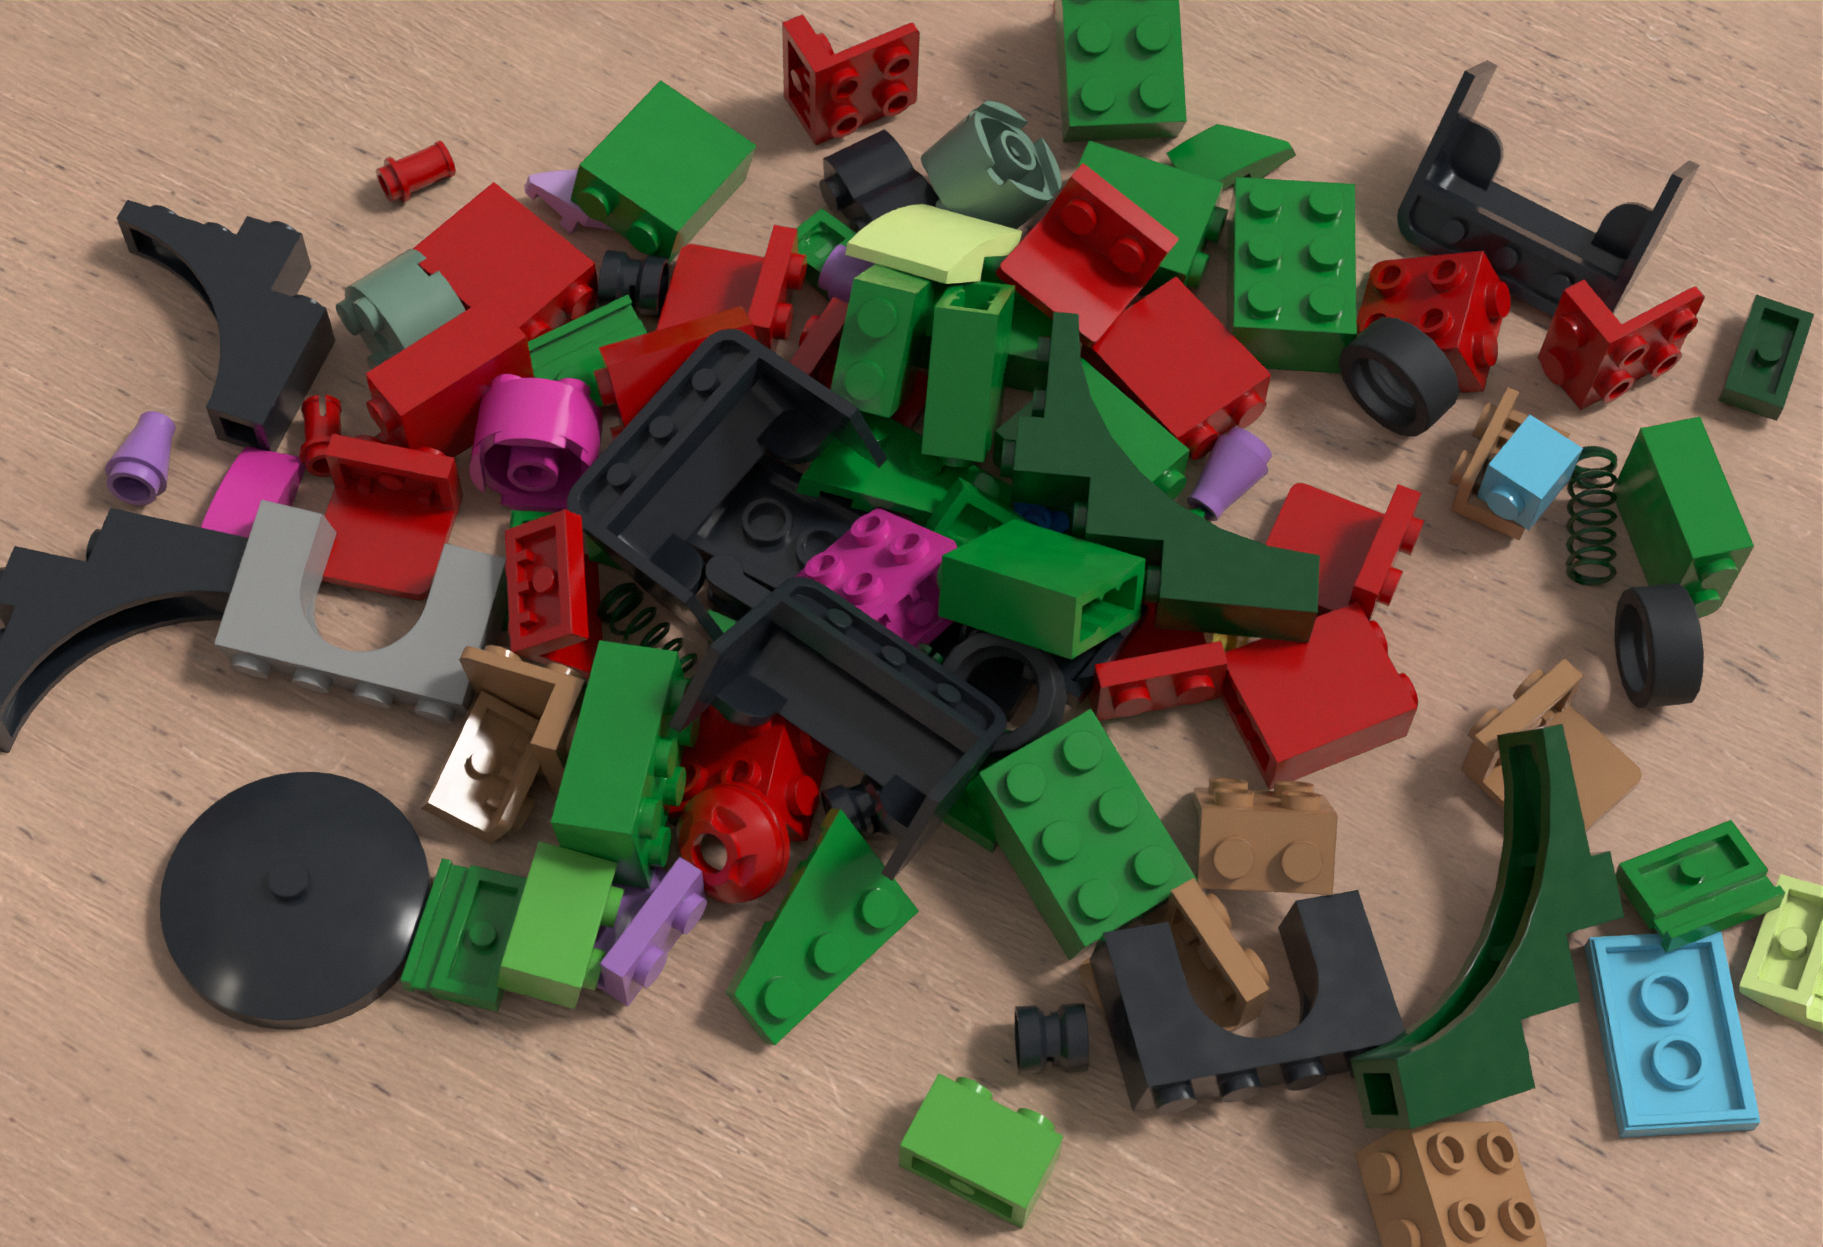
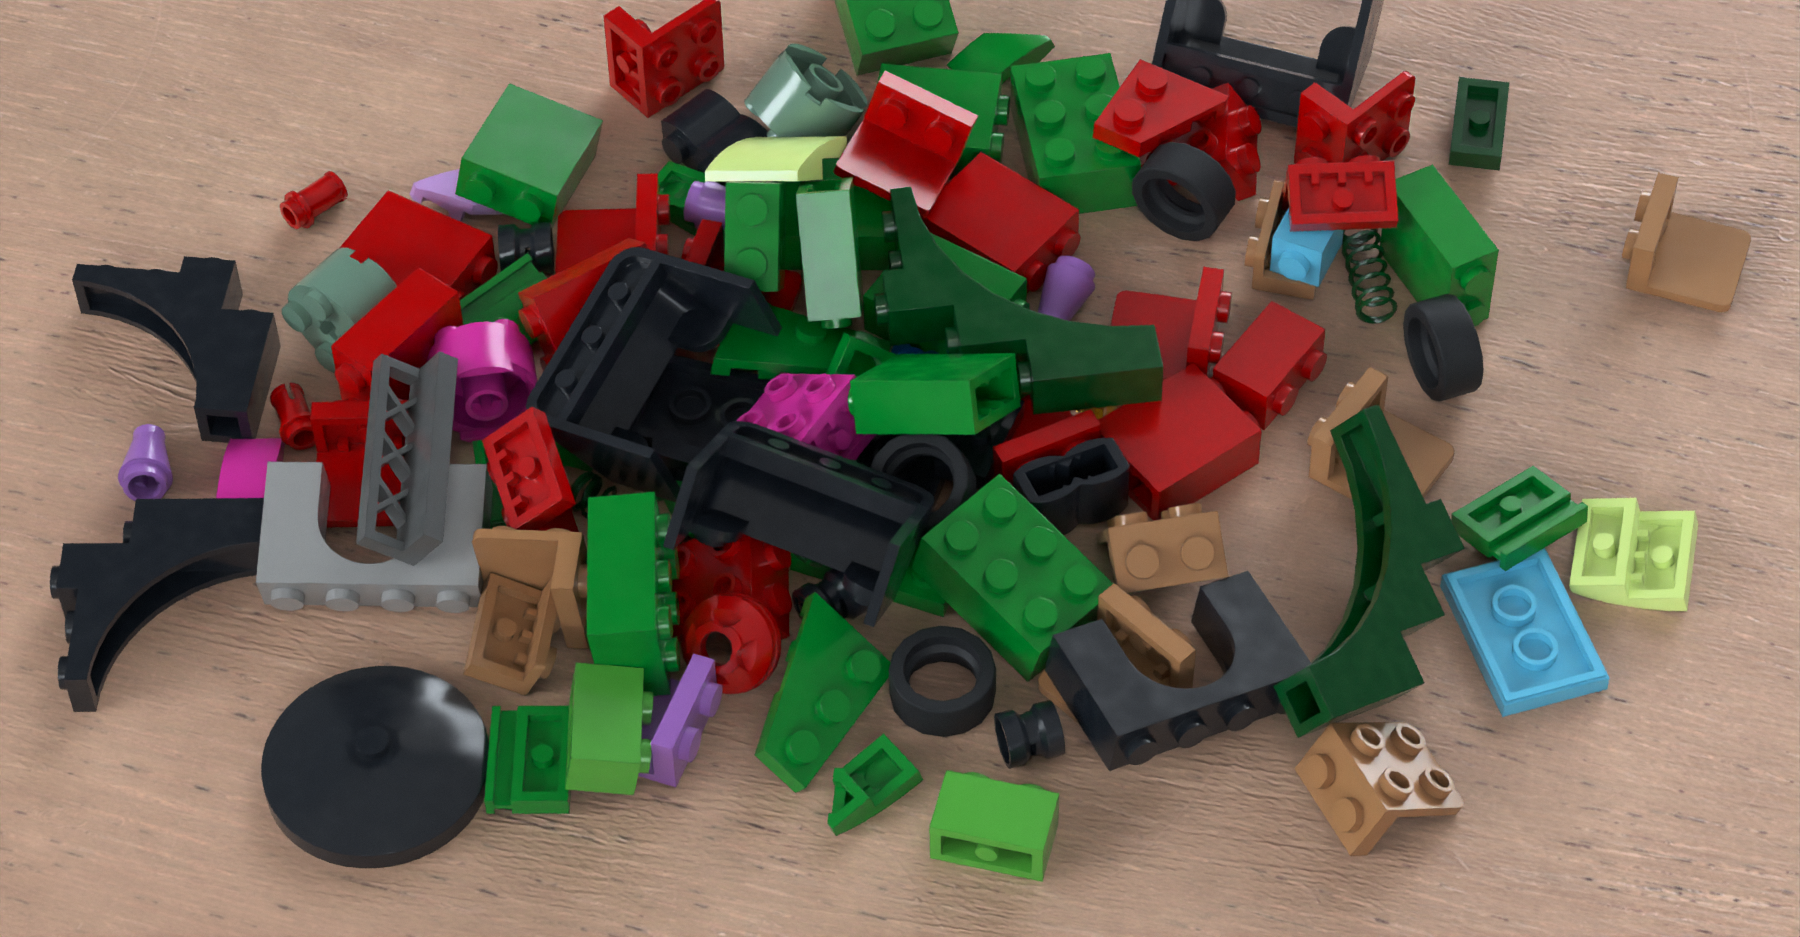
camera: 10 degrees left, 10 degrees down
(436, 539) = (425, 453): none -> dark grey fence
(850, 1056) = (870, 784): none -> green slope
(968, 894) = (949, 646): none -> black tyre
(1186, 732) = (1079, 487): none -> black brick
(1388, 269) = (1154, 108): none -> red wing
(1449, 618) = (1272, 363): none -> red brick
(1581, 433) = (1340, 194): none -> red bracket

